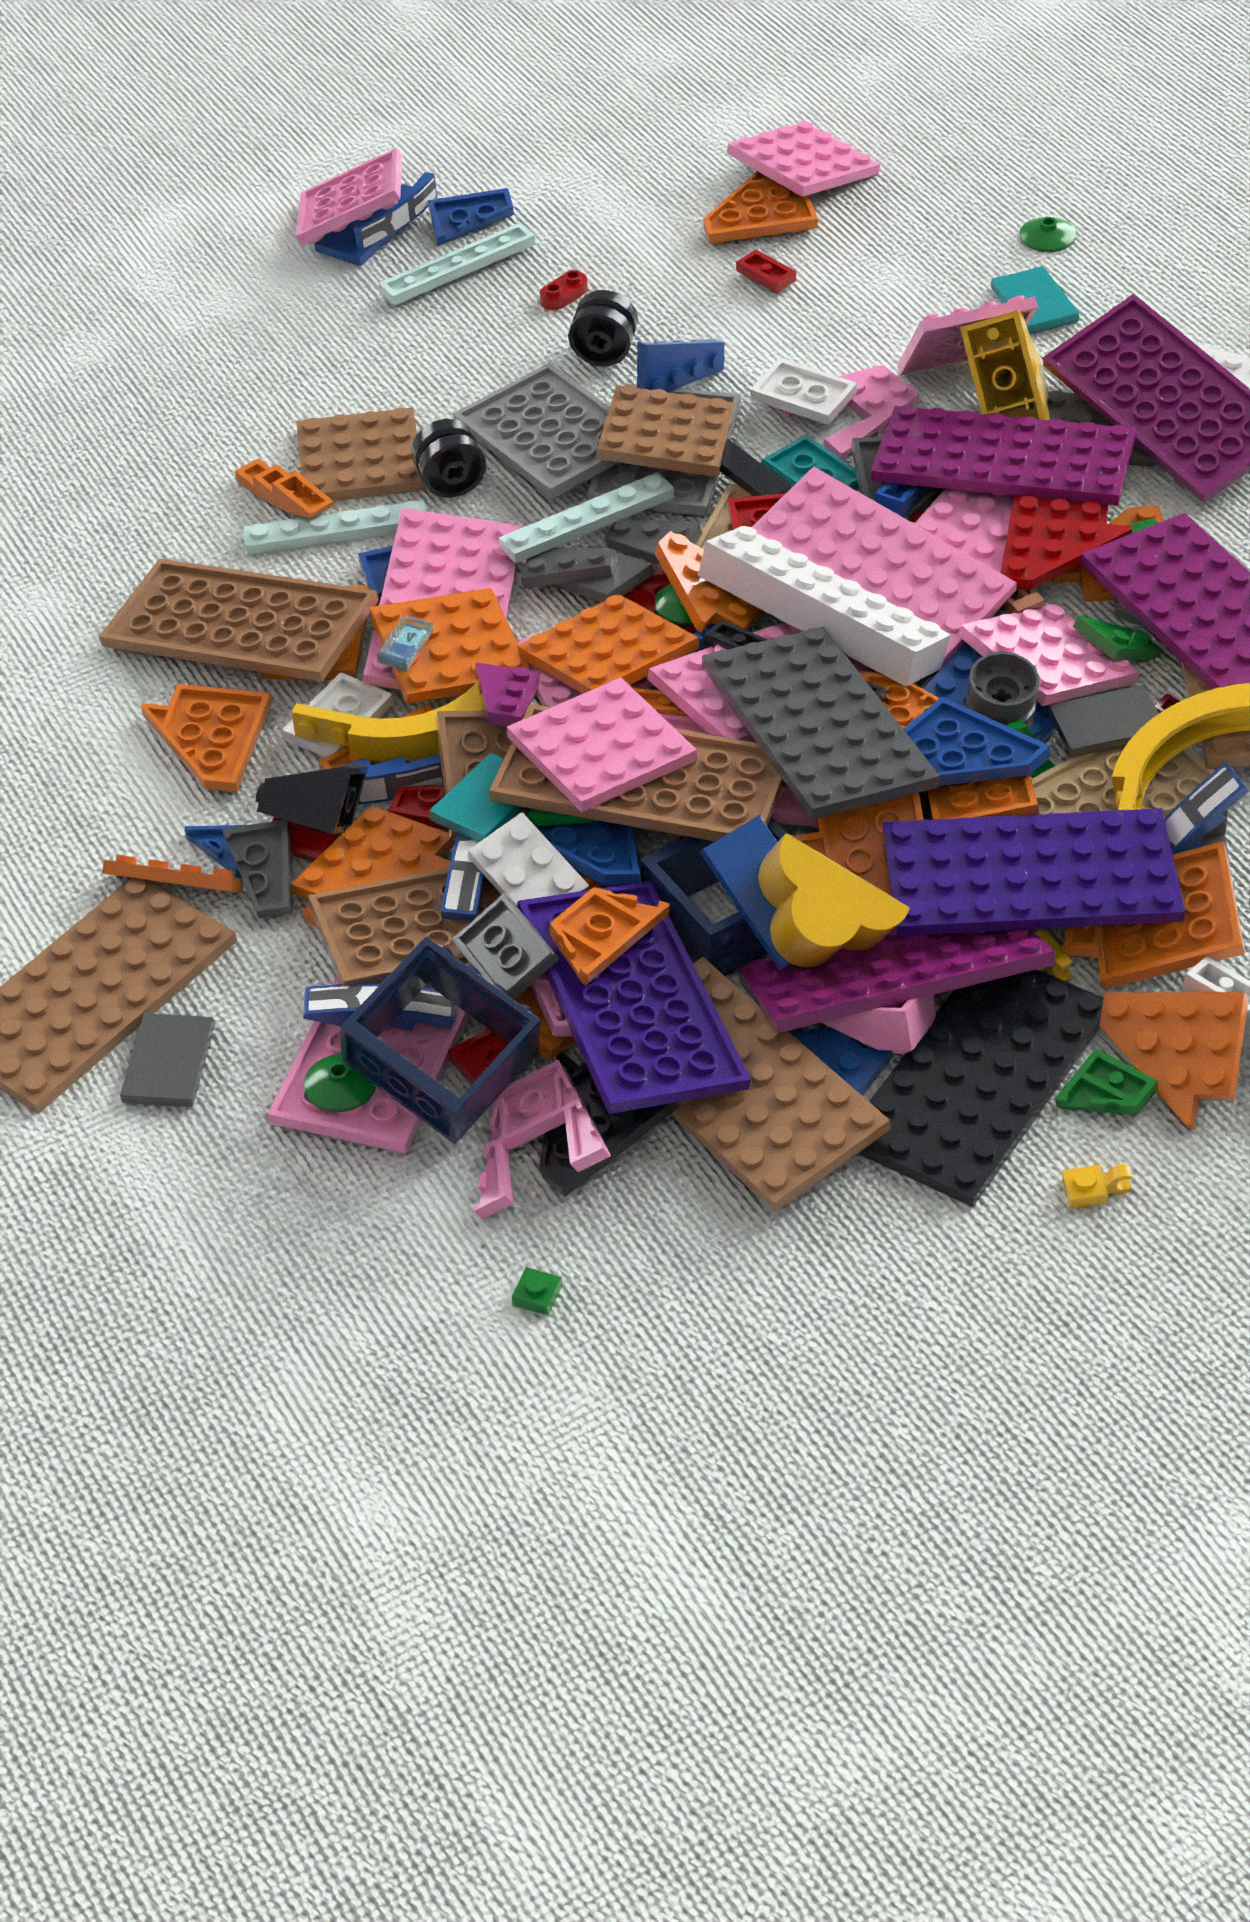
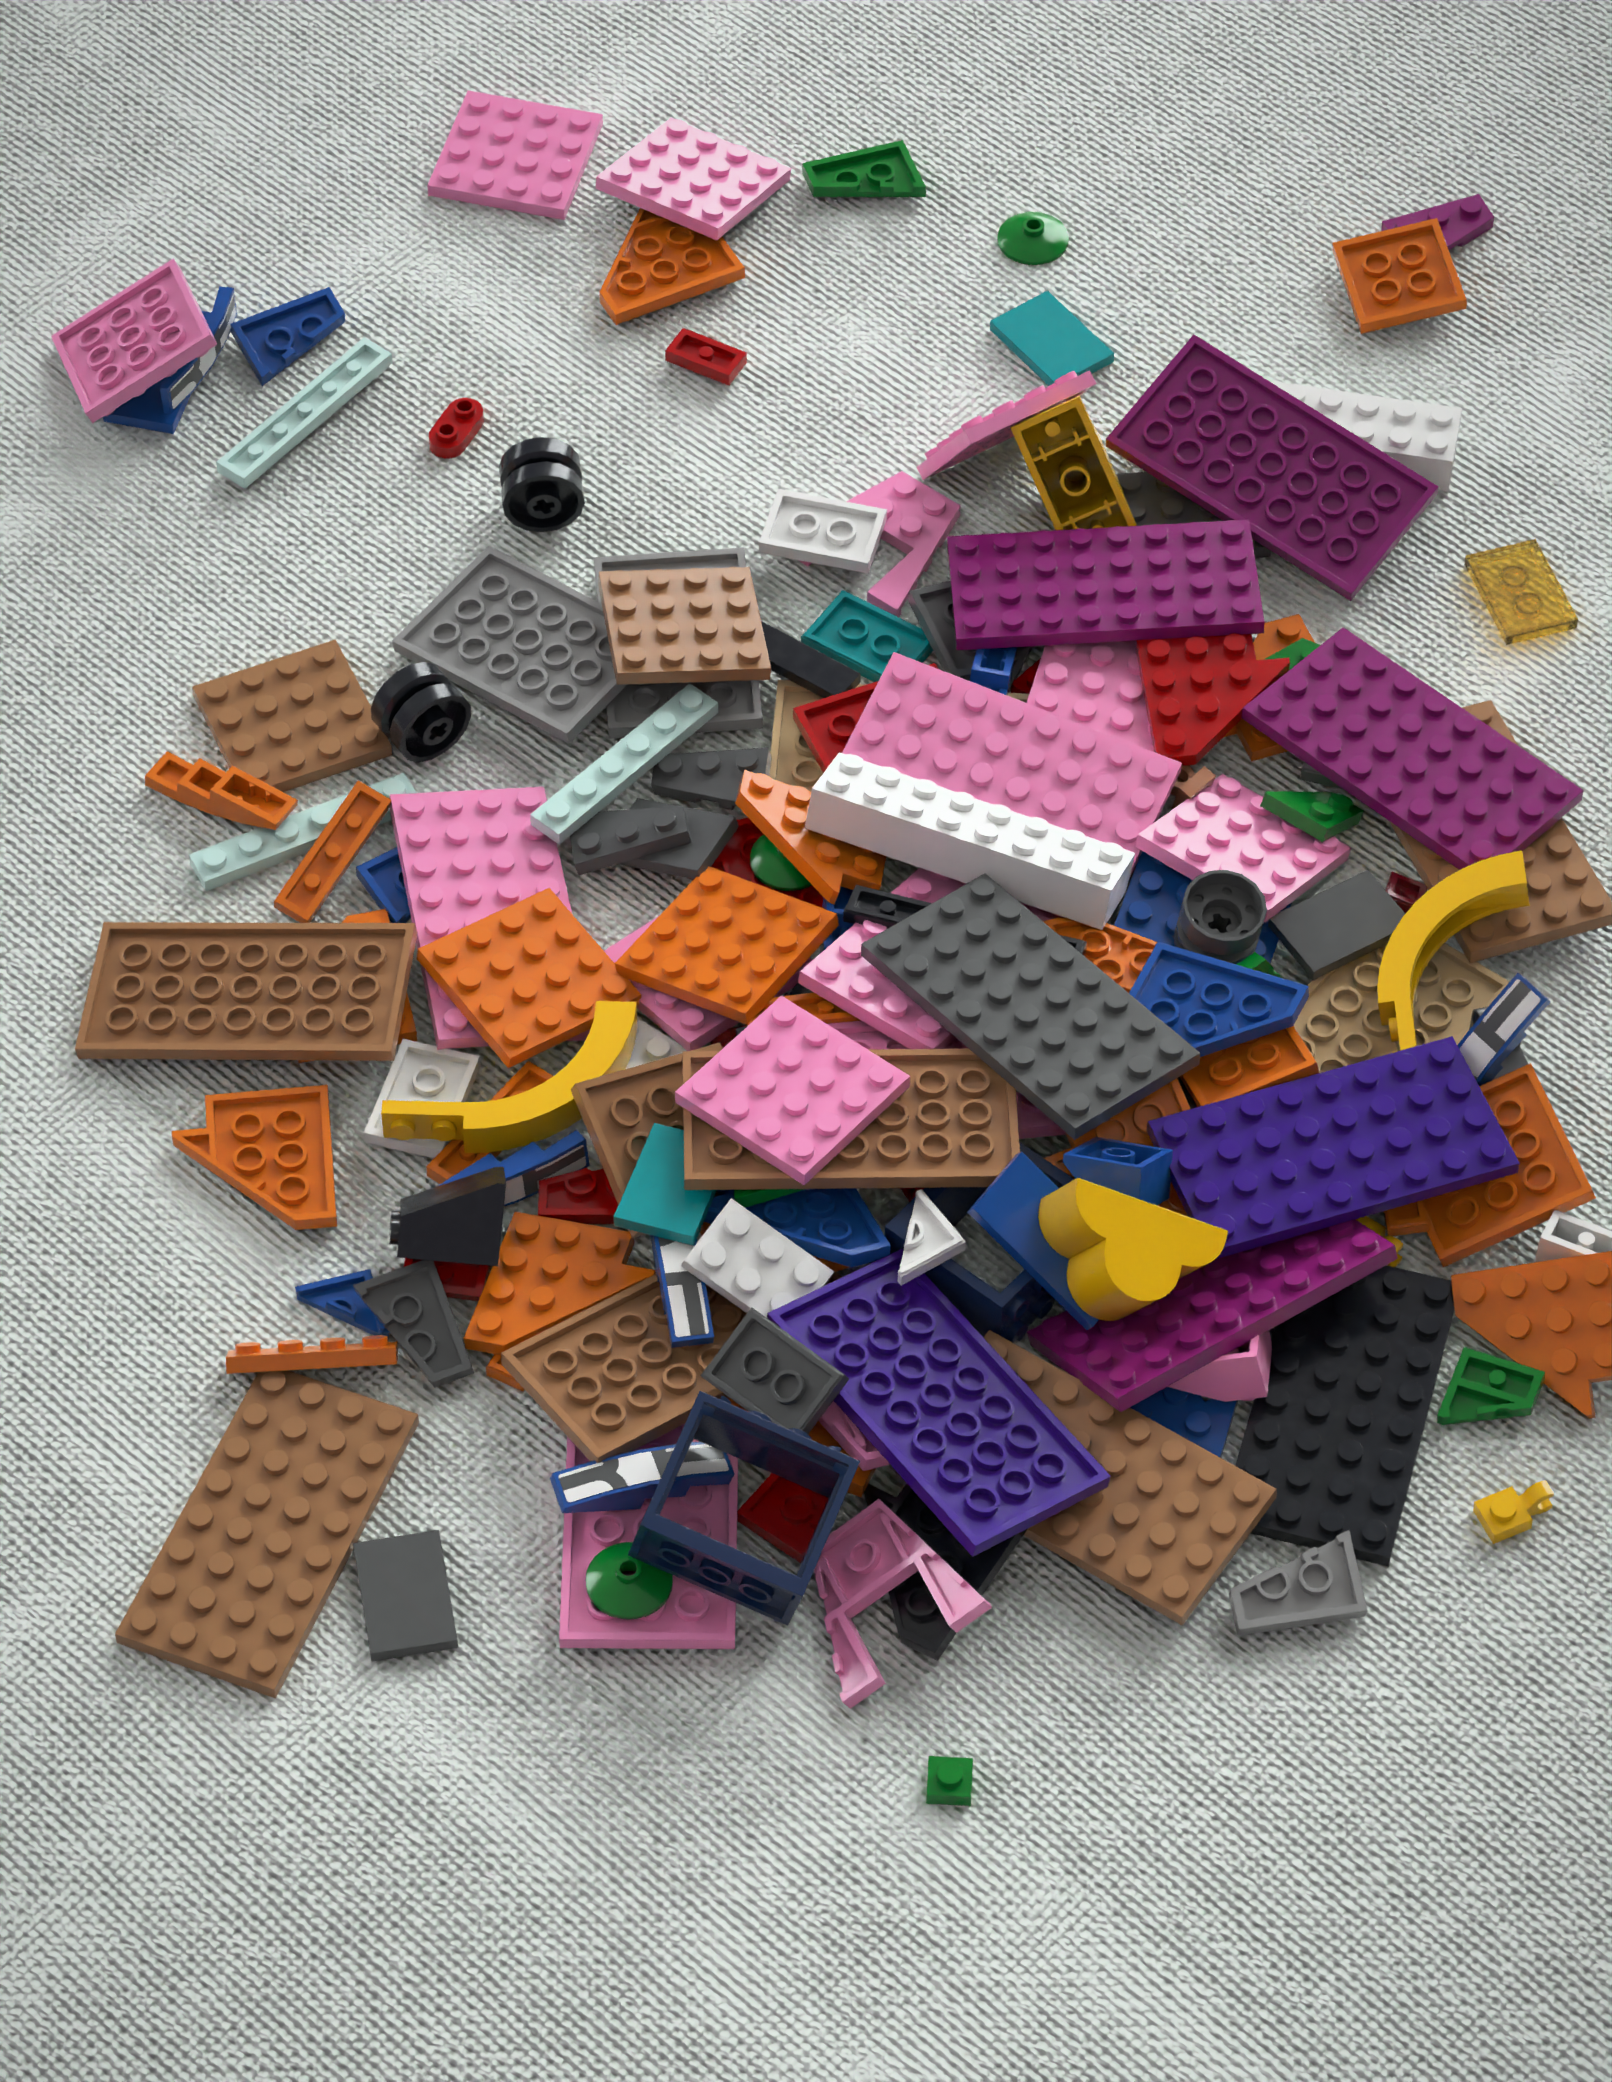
camera: 20 degrees left, 5 degrees up
(345, 540) = (332, 853): none -> orange plate
(405, 642) = (485, 991): clear light blue tile -> none
(505, 692) = (643, 1038): magenta wing -> none
(602, 929) = (880, 1330): orange wing -> none
(668, 874) = (928, 1240): none -> white tile
(677, 362) = (657, 524): blue wing -> none
(682, 130) = (515, 155): none -> bright pink plate
(853, 851) = (1123, 1167): none -> blue slope
(887, 1209) = (1307, 1591): none -> light grey wing
(934, 174) = (867, 172): none -> green wing

